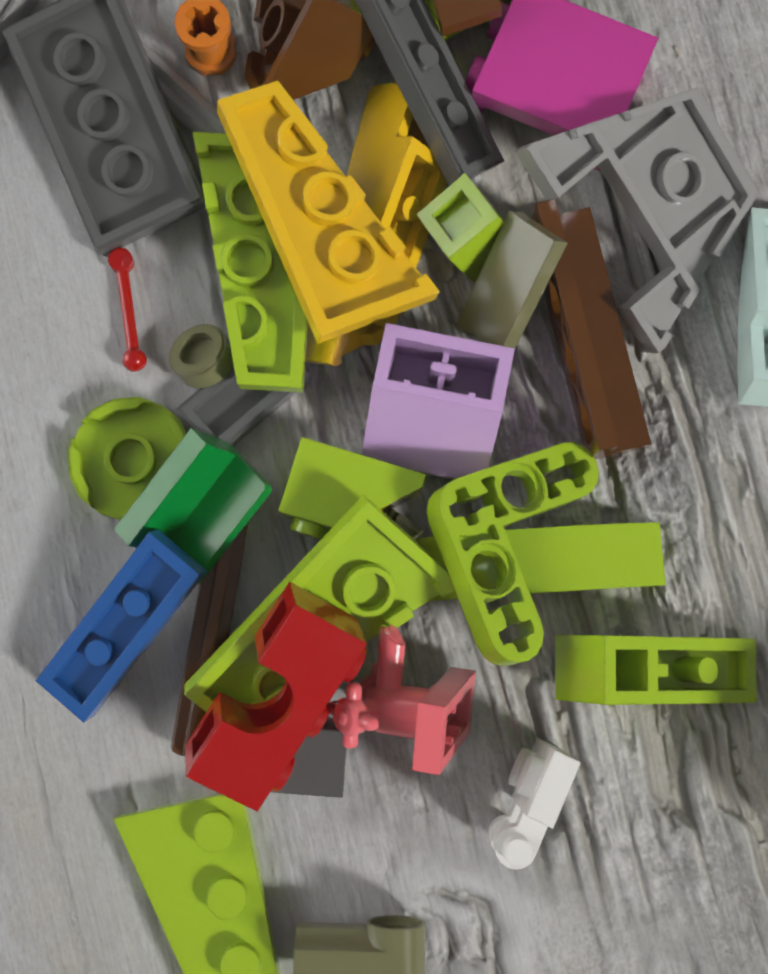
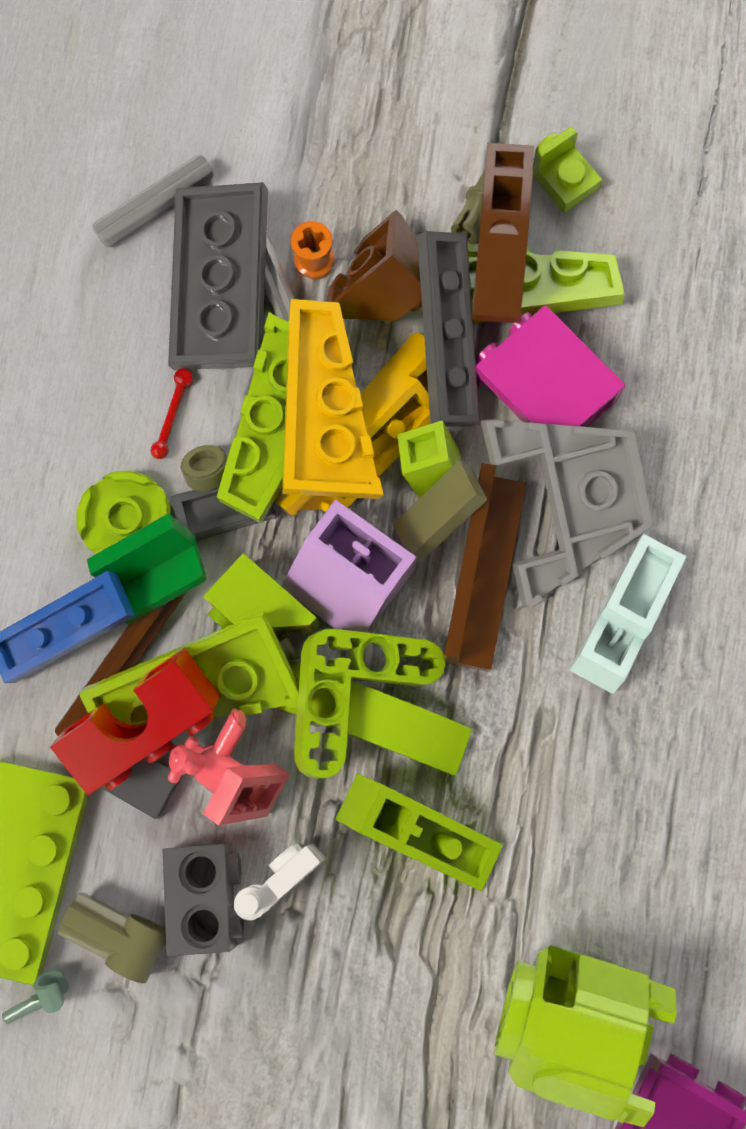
camera: 30 degrees right, 5 degrees down
(430, 869) = (186, 898): none -> dark grey brick

